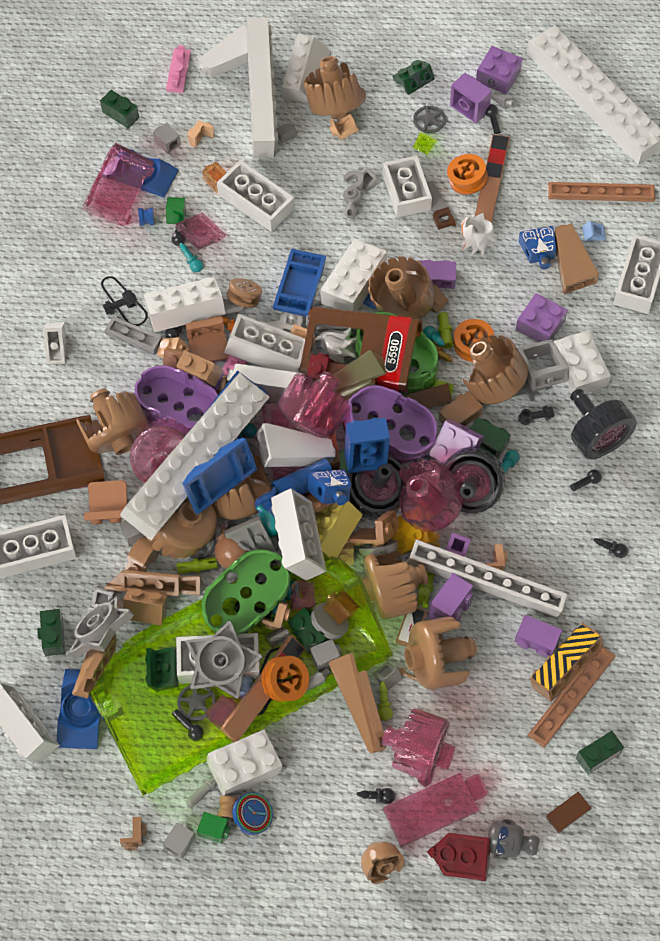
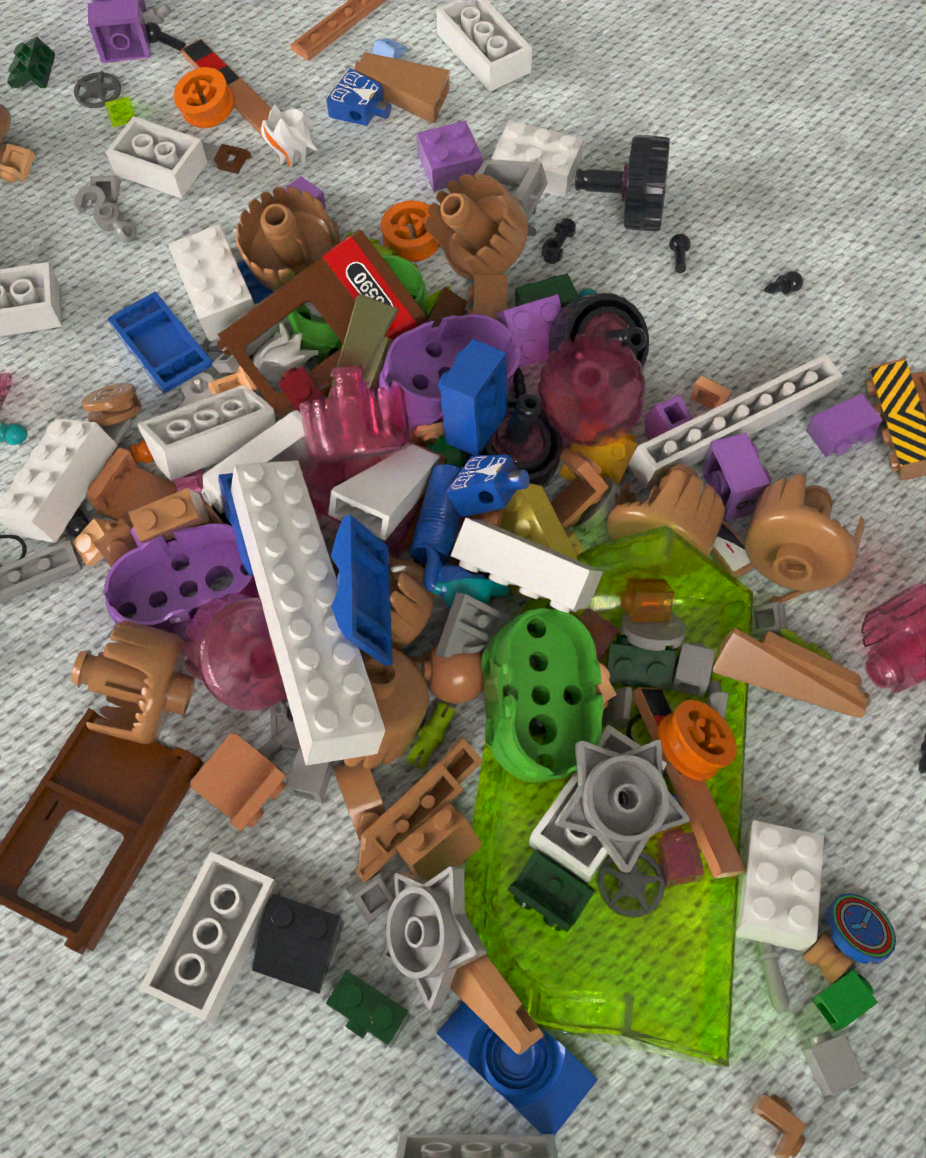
camera: 50 degrees left, 0 degrees up
(57, 583) = (296, 943): none -> black slope
(195, 732) = (674, 918): black bar -> none

